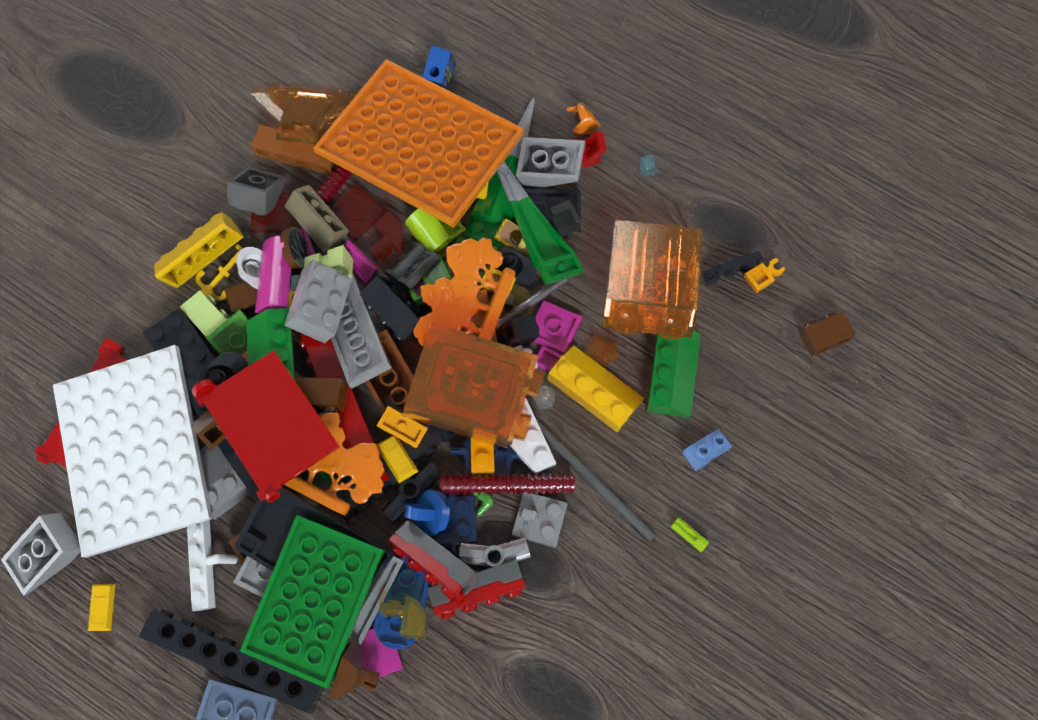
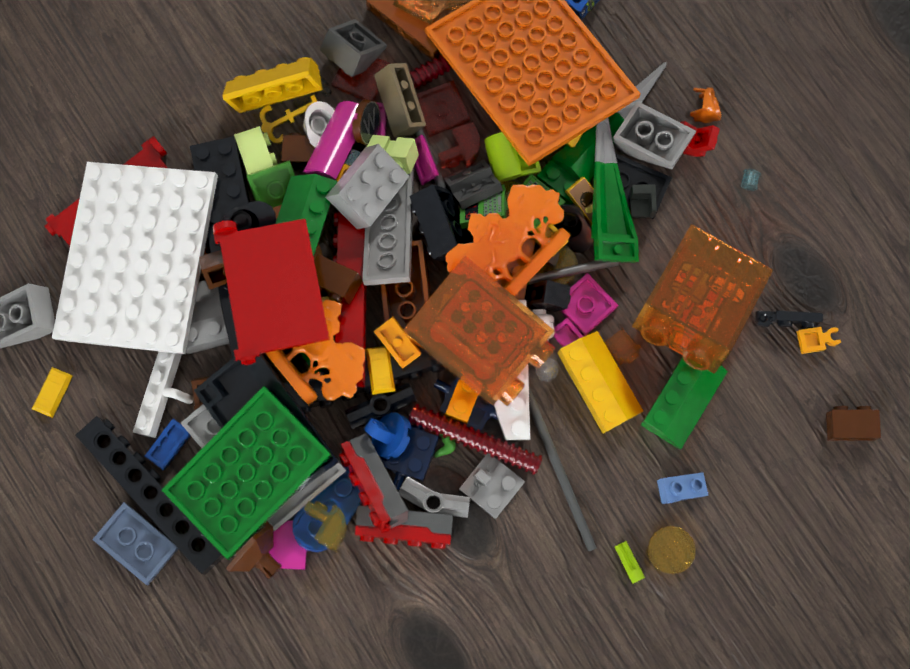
camera: 20 degrees right, 5 degrees up
(230, 608) = (168, 444): none -> blue plate
(721, 508) = (671, 550): none -> clear yellow tile

